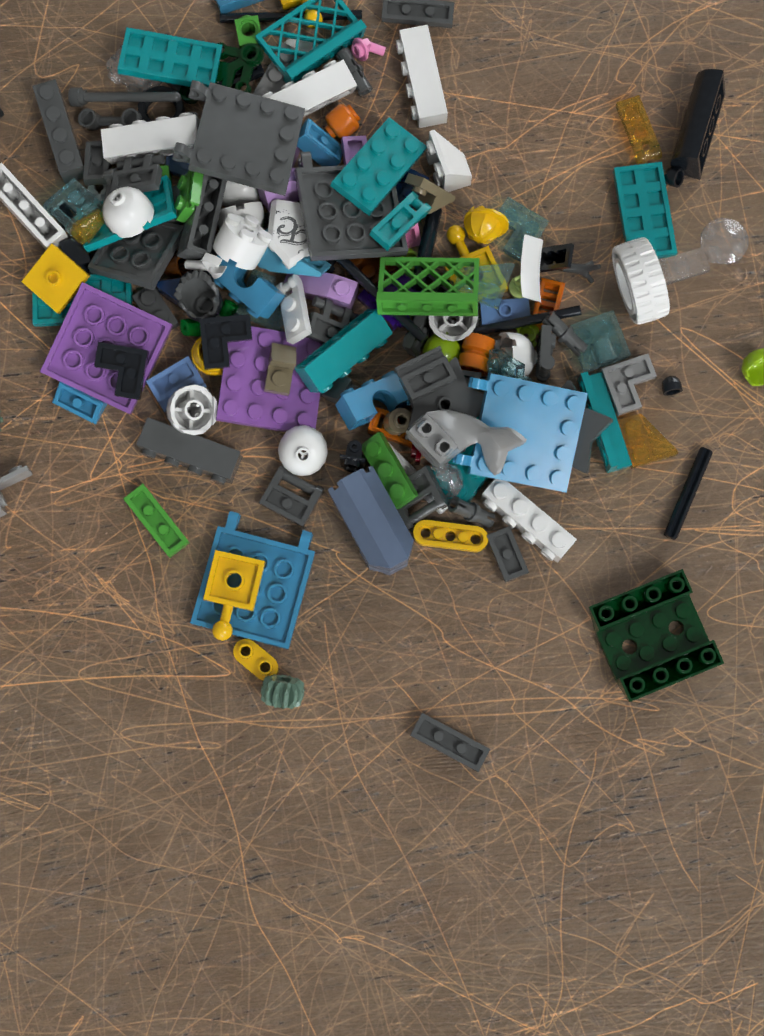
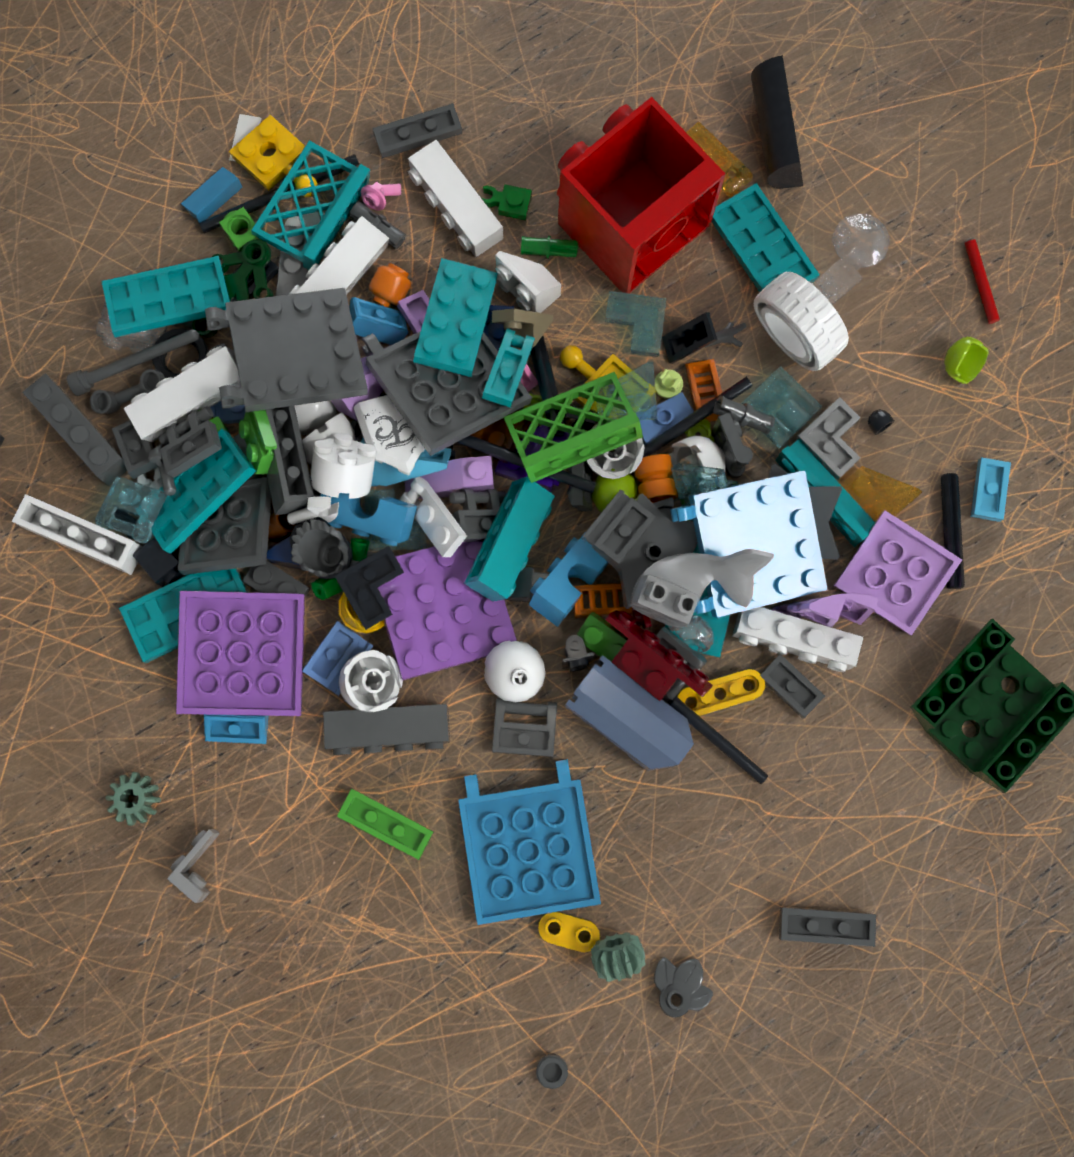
camera: 25 degrees left, 0 degrees up
(55, 278) = (147, 599): yellow plate -> none
(87, 227) = (158, 526): clear yellow cone -> none
(127, 211) = (197, 489): white cylinder -> none
(130, 364) = (275, 659): black plate -> none
(196, 754) = (552, 1071): none -> dark grey tile
(220, 592) = (497, 876): yellow plate -> none
(280, 369) = (448, 589): dark tan slope -> none
(323, 734) = (684, 983): none -> dark grey plate
(391, 424) = (606, 593): dark tan brick -> none
(405, 485) = (651, 662): none -> dark red bracket
(432, 569) = (719, 741): none -> black piece
(465, 96) = (512, 202): none -> green plate
(471, 512) = (733, 657): dark grey pin -> none
(477, 143) = (548, 247): none -> green axle
(485, 224) = (600, 332): yellow piece -> none
(531, 267) = (671, 358): white sticker -> none
(558, 131) = (637, 193): none -> red piece
(559, 506) = (828, 609): none -> lavender slope
(628, 504) = (900, 570): none -> lavender plate
(674, 176) = (776, 193): black hinge -> none
(733, 474) = (990, 489): none -> medium azure plate

